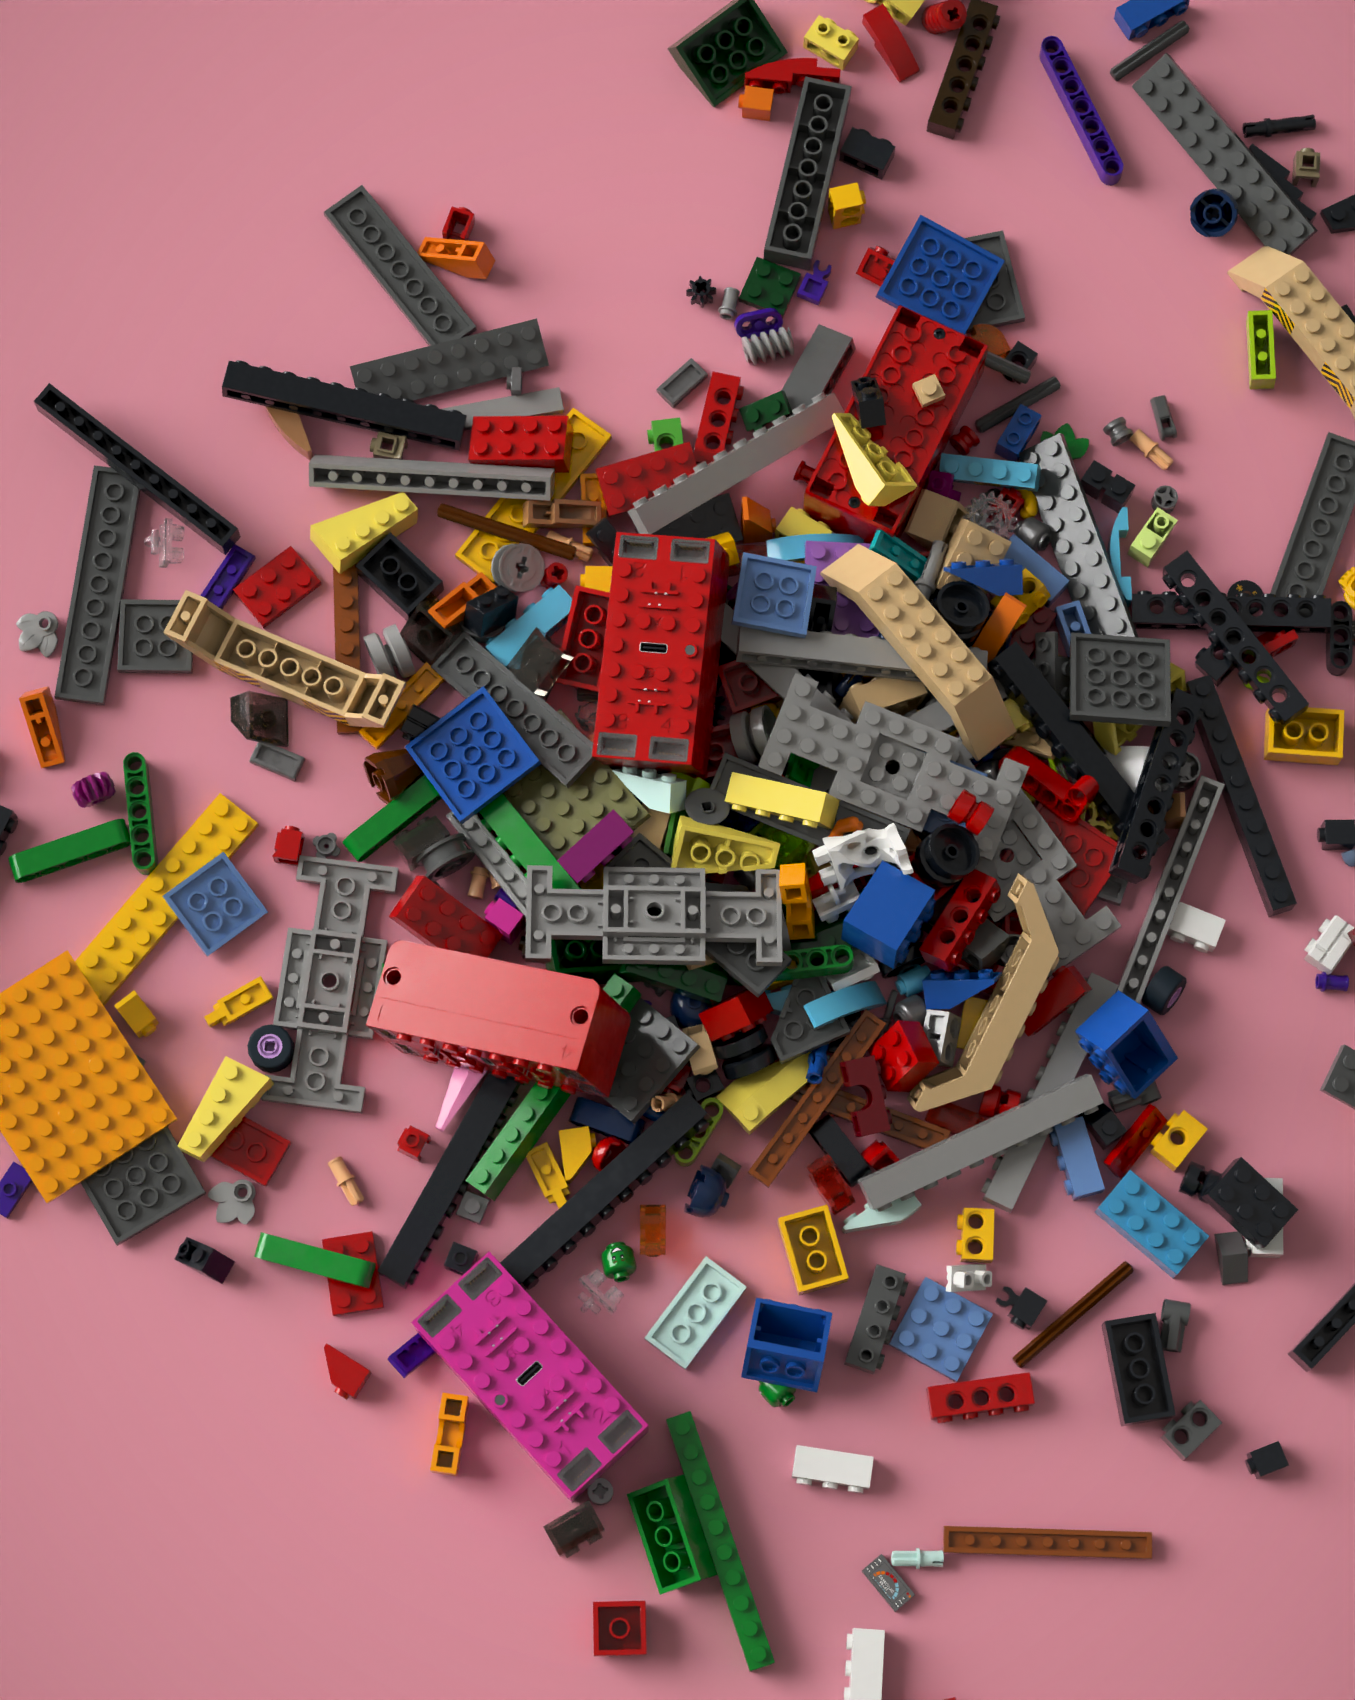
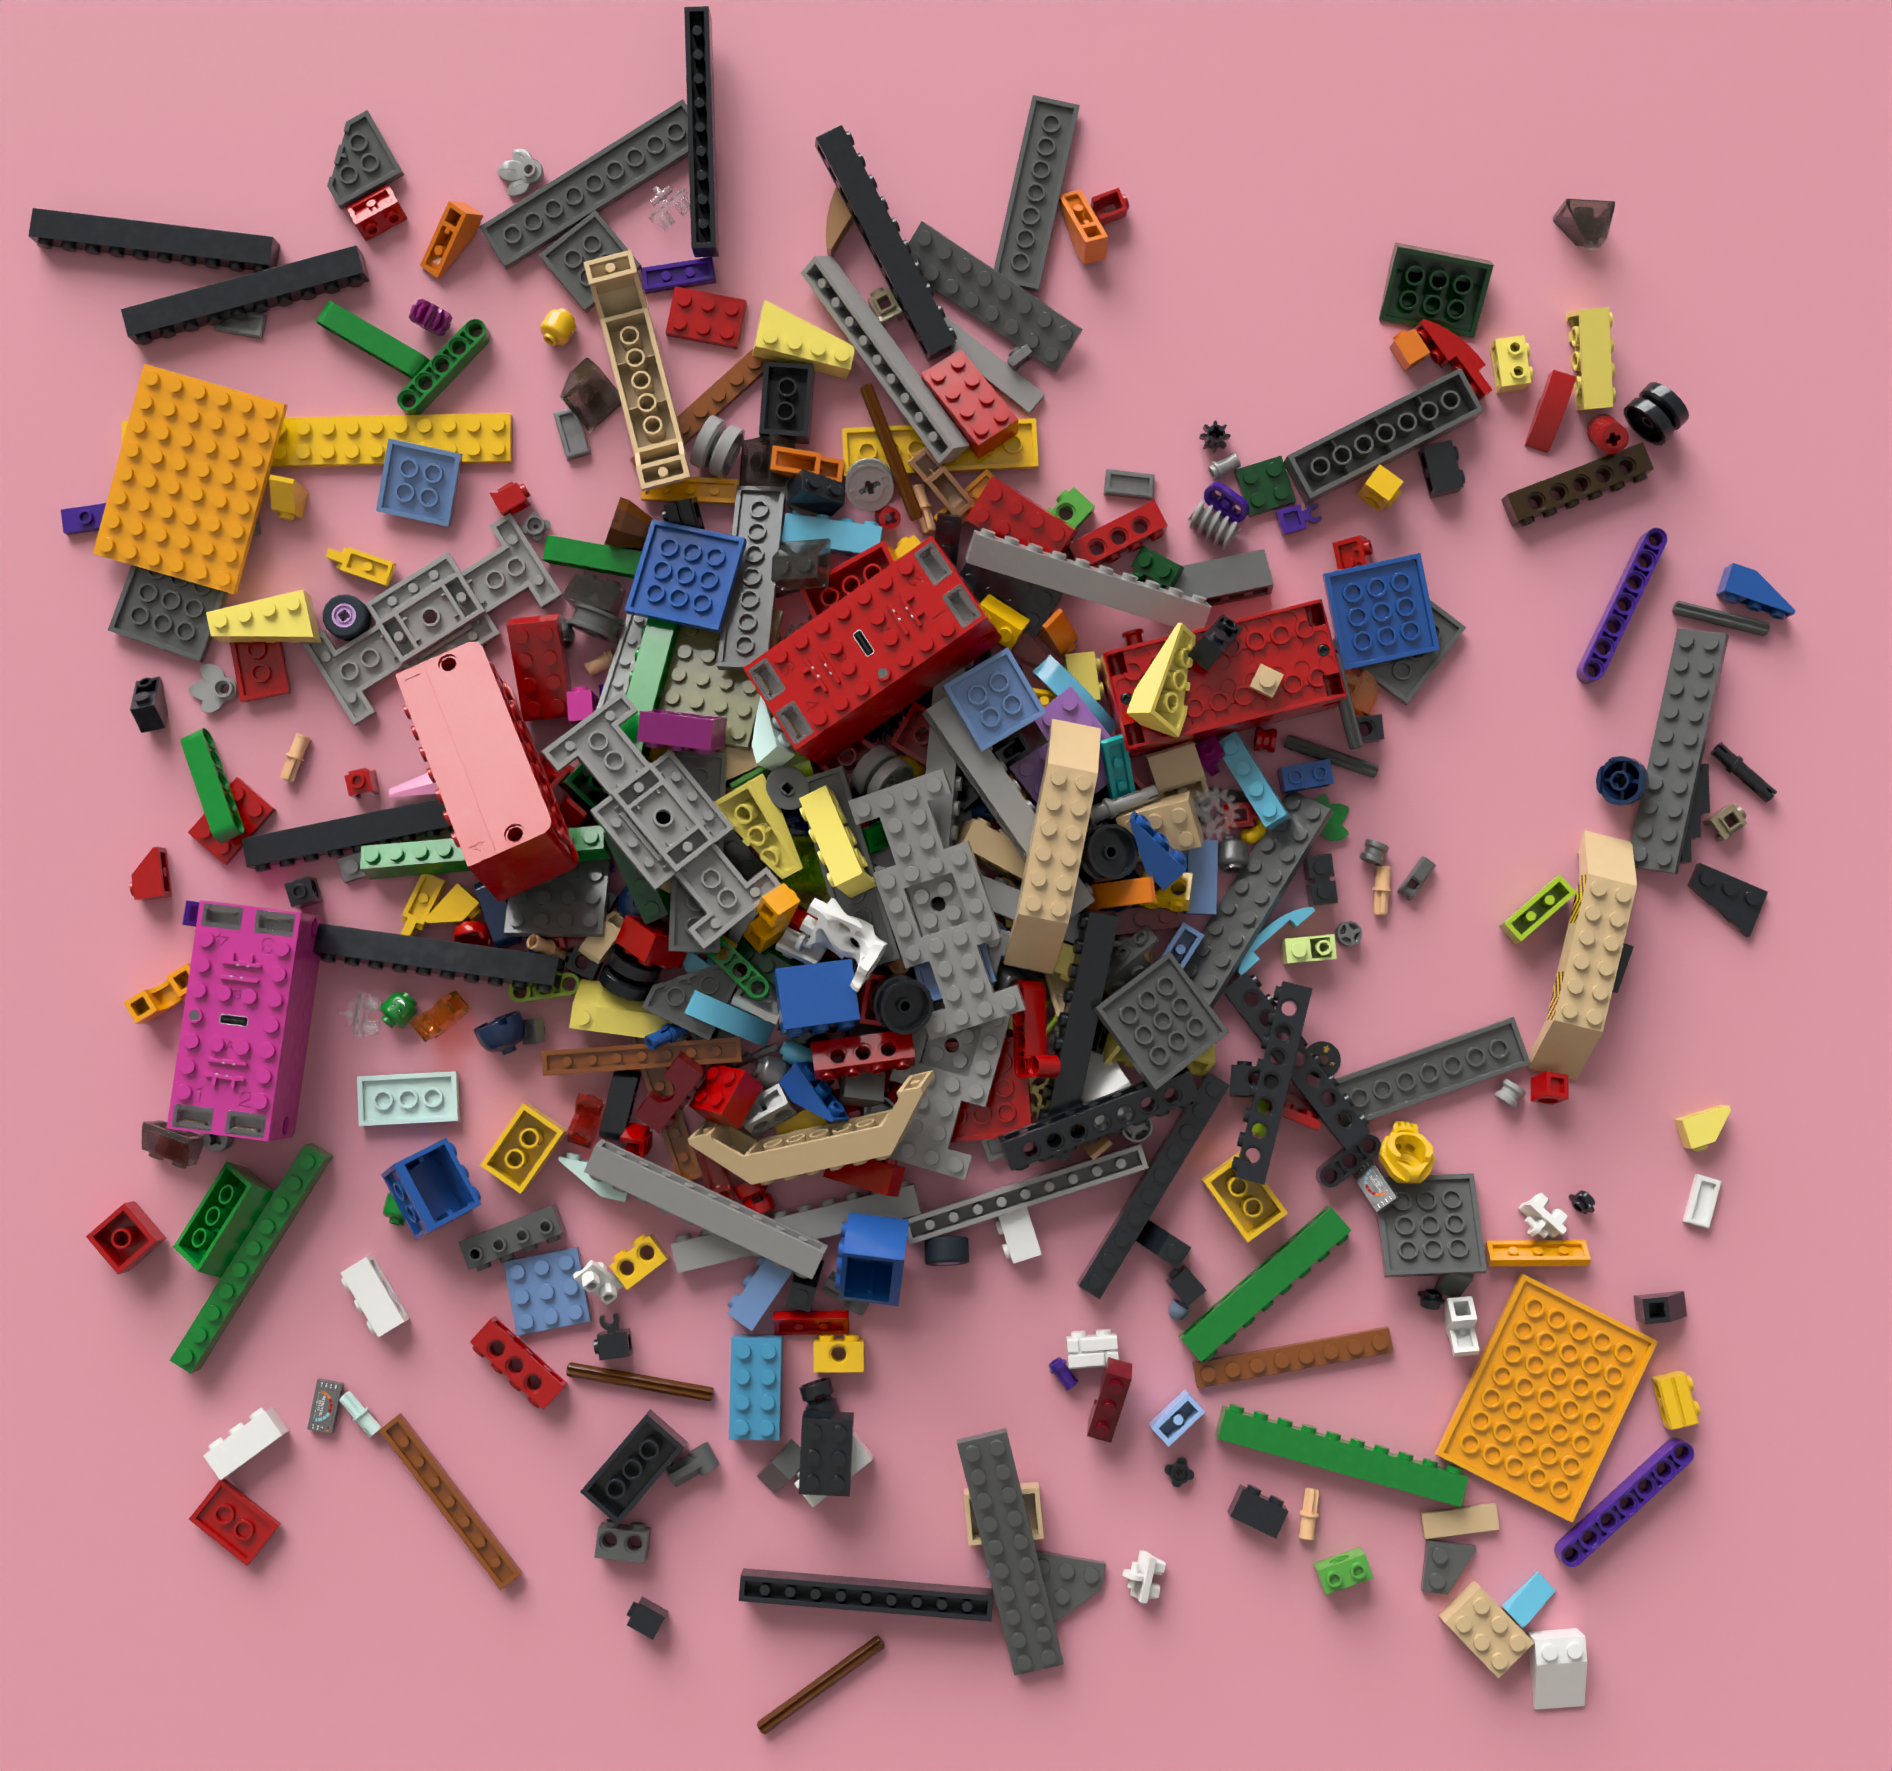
camera: 50 degrees right, 10 degrees up
(186, 701) = (558, 327): none -> yellow head
(846, 825) = (859, 906): orange arm -> none
(969, 811) = (947, 995): red wheel -> none
(1294, 824) = (1163, 1244): none -> black slope

